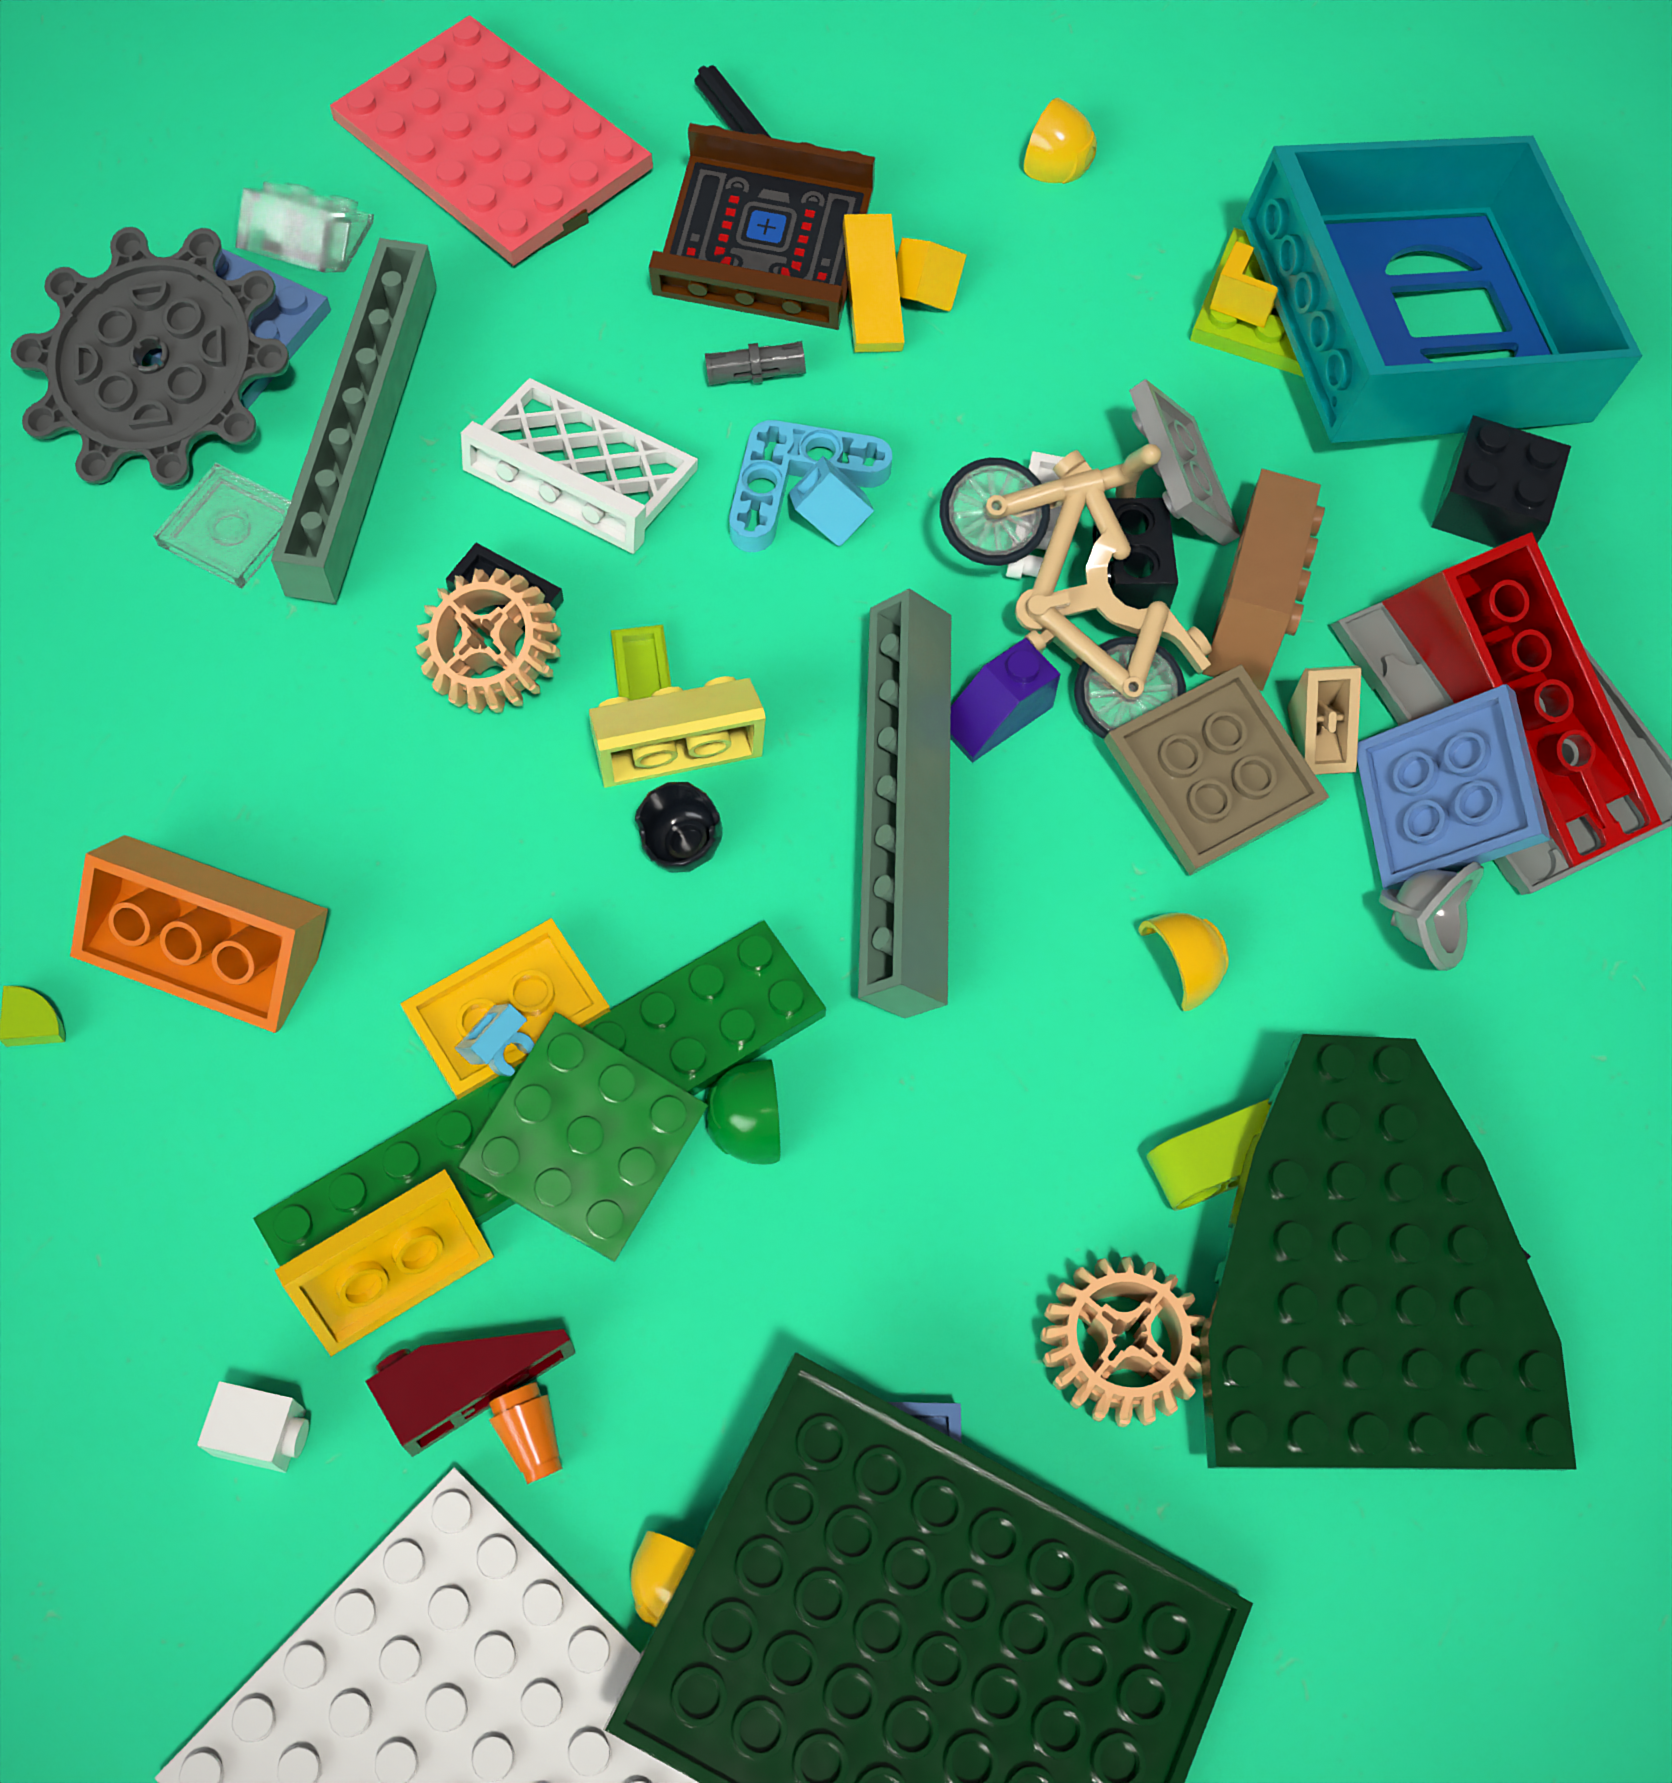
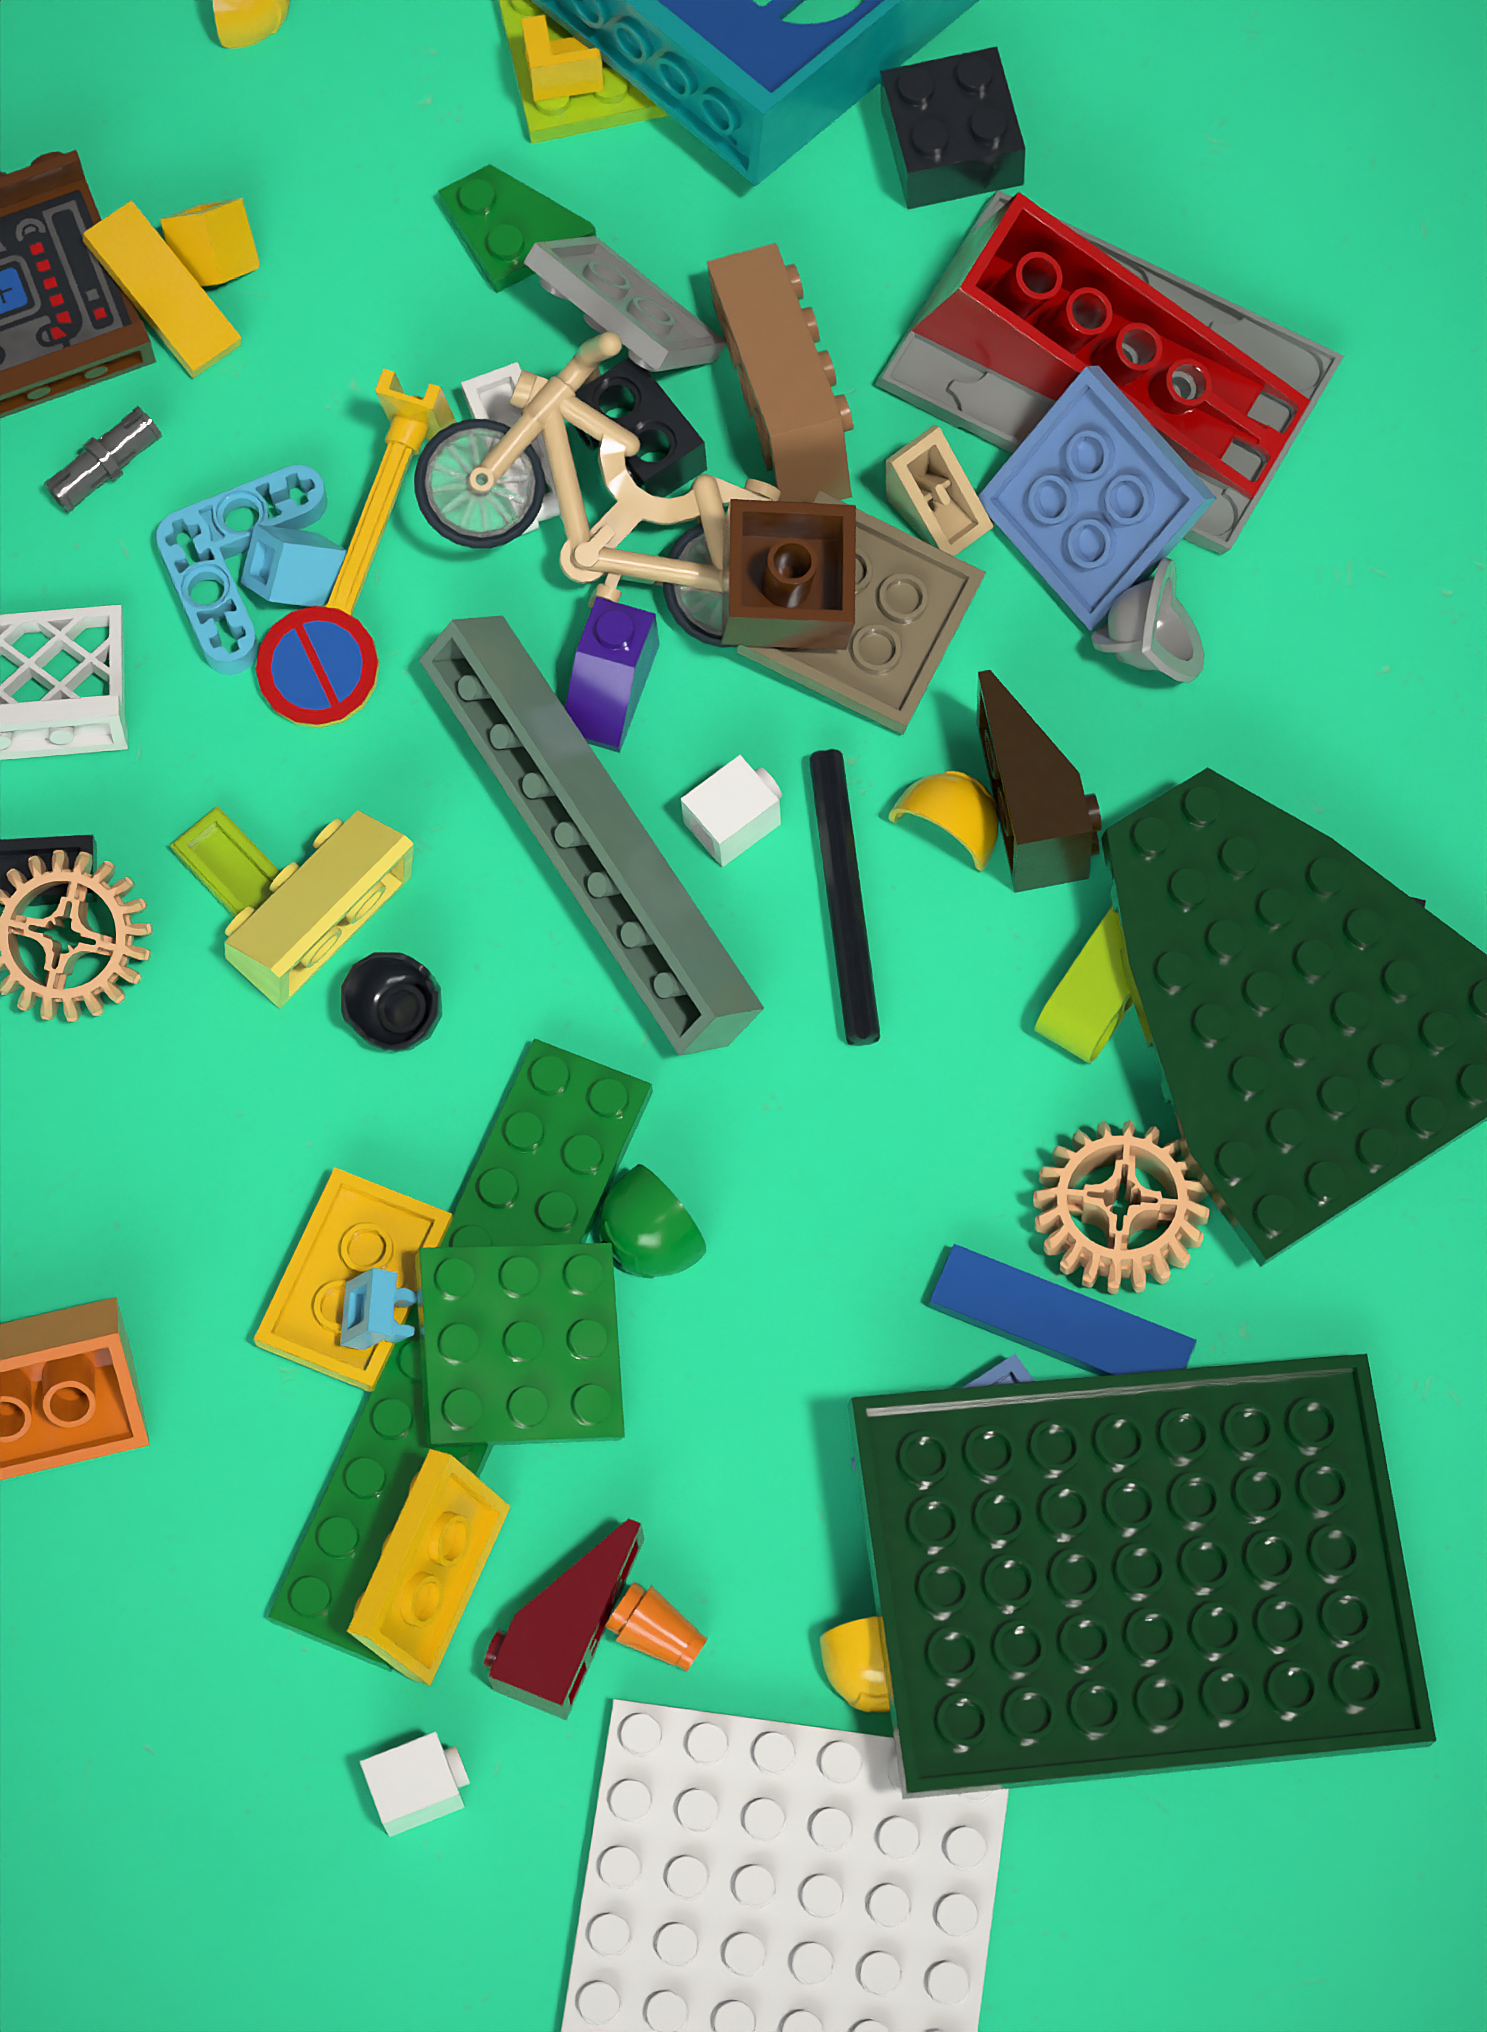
camera: 25 degrees left, 5 degrees up
(808, 573) = (320, 659): none -> piece
(1015, 1399) = (1054, 1318): none -> blue tile
(1025, 848) = (732, 809): none -> white brick
(1064, 967) = (844, 898): none -> black axle
(1128, 360) = (504, 220): none -> green wing
(1177, 700) = (788, 574): none -> reddish brown brick
(1265, 978) = (1037, 794): none -> dark brown slope

